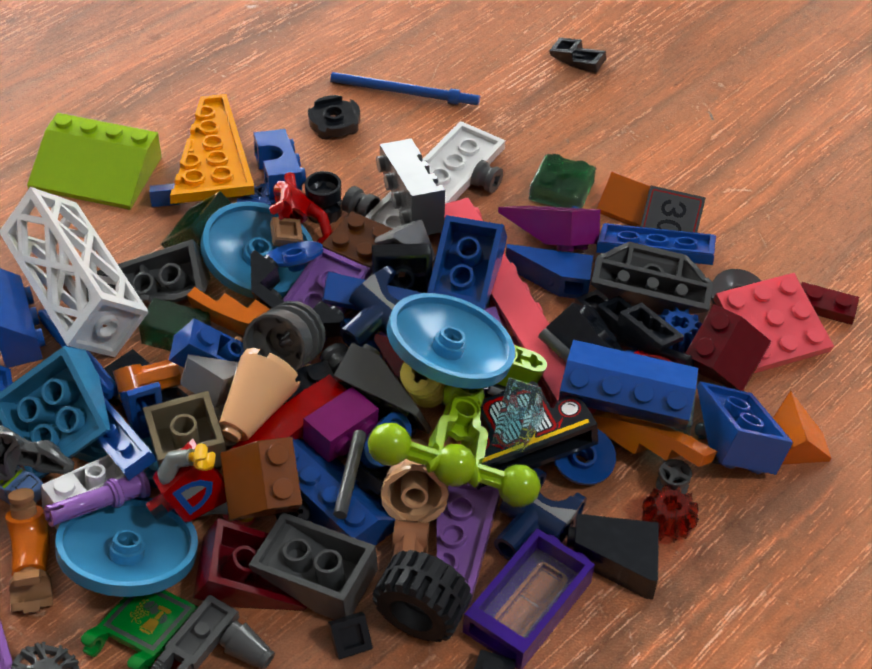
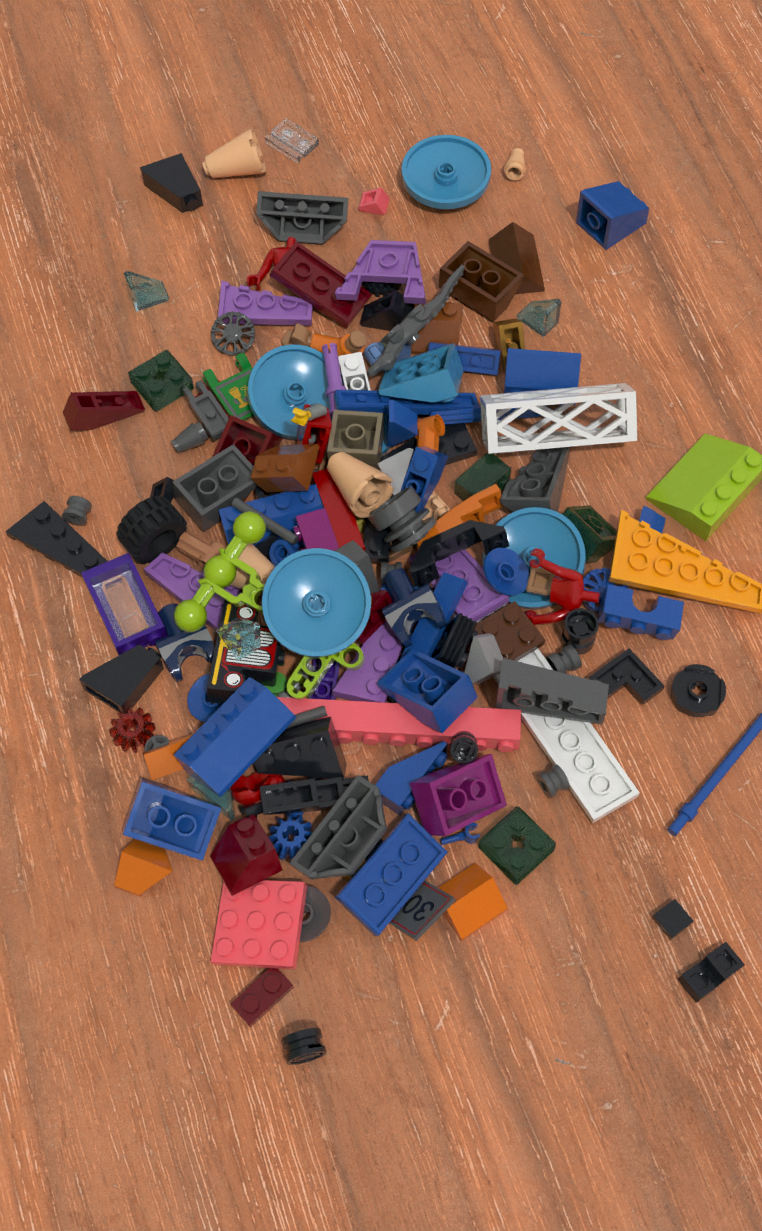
camera: 120 degrees right, 15 degrees up
(347, 161) = (629, 672): none -> black plate
(512, 221) = (462, 742): none -> black wheel
(552, 84) = (672, 919): none -> black tile
(845, 248) = (303, 1046): none -> black wheel

